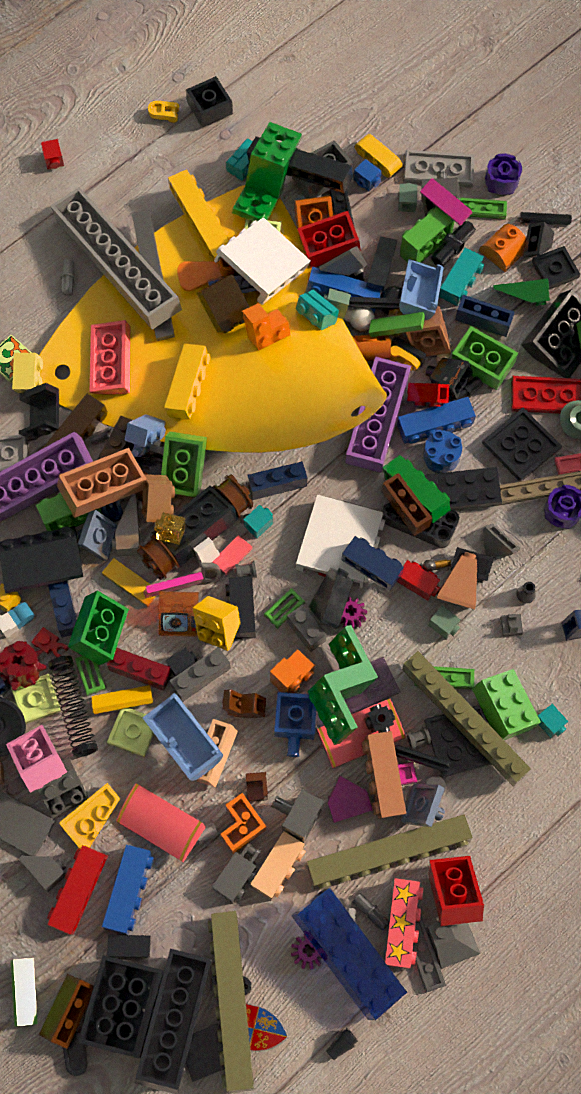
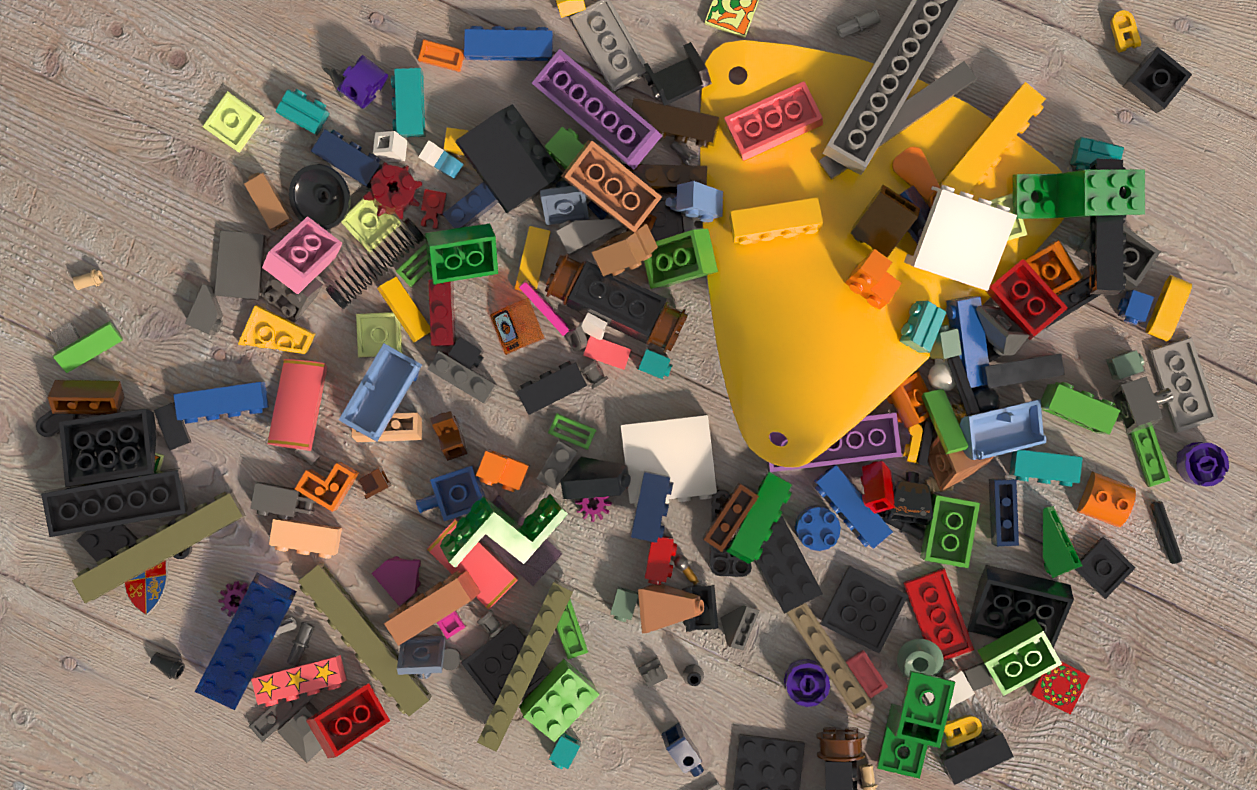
camera: 75 degrees right, 20 degrees up
(26, 371) = (717, 38): light yellow brick -> none
(77, 890) = (199, 354): red brick -> none
(170, 528) = (593, 281): clear yellow brick -> none
(216, 622) = (520, 371): yellow slope -> none
(277, 480) = (705, 362): dark blue brick -> none
(300, 815) = (359, 540): dark grey brick -> none
(372, 719) = (492, 575): black brick -> none
(422, 758) = (469, 635): black axle -> none
(446, 201) = (1124, 417): dark pink tile -> none
(453, 243) = (1085, 440): black piece -> none
(538, 239) = (1127, 537): black slope -> none

